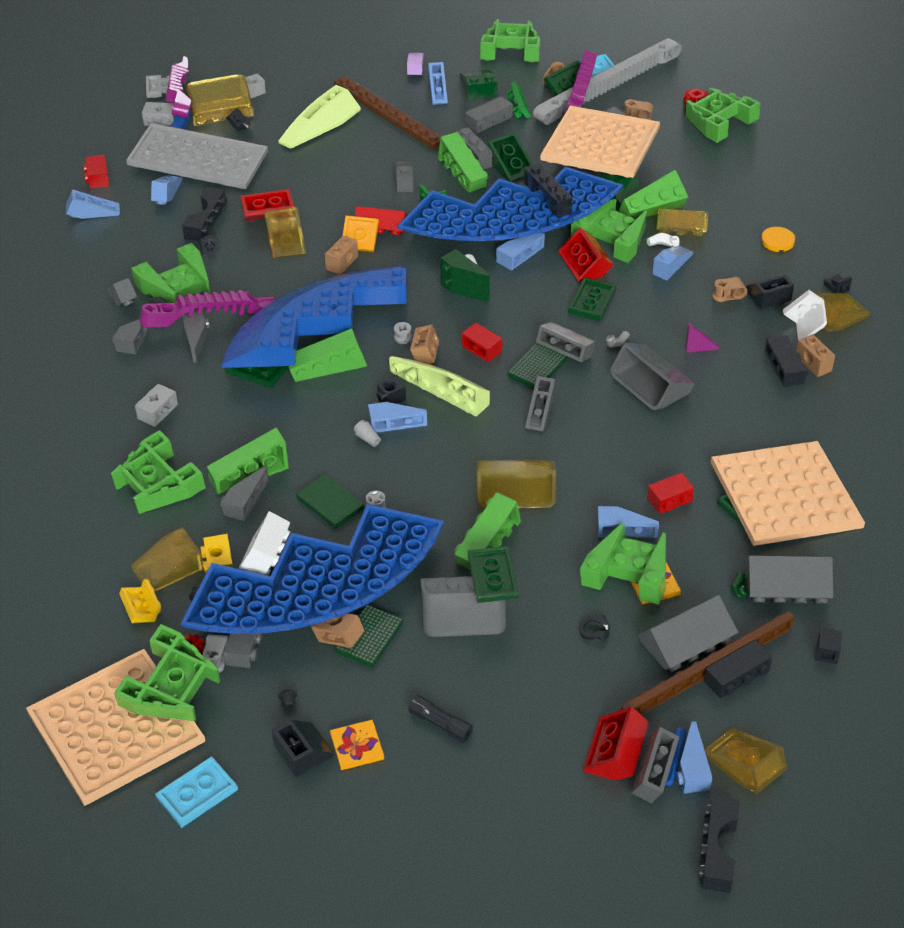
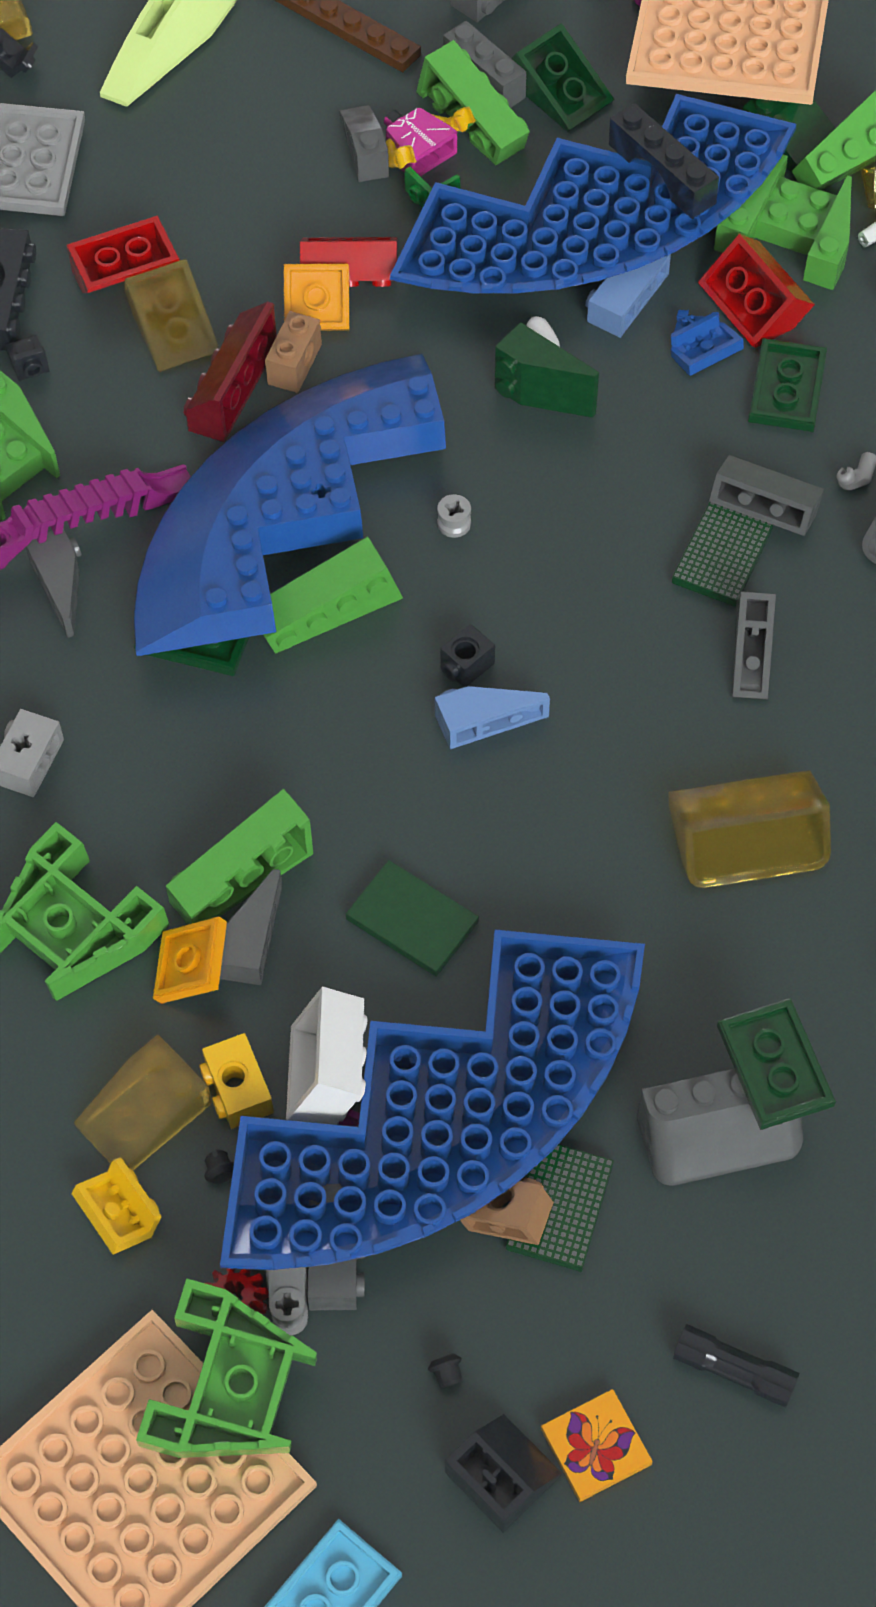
camera: 10 degrees left, 15 degrees up
(209, 501) = (190, 960): none -> light orange tile
(307, 261) = (232, 373): none -> dark red slope
(367, 433) = (444, 756): light grey cone -> none
(376, 498) = (497, 902): light grey wheel -> none
(425, 344) = (506, 542): medium nougat brick -> none
(434, 175) = (423, 138): none -> dark pink torso
(443, 384) = (560, 624): yellowish green wedge -> none
(482, 342) = (609, 516): red brick -> none
(490, 527) = (726, 950): bright green wedge -> none
(552, 275) = (702, 341): none -> blue slope

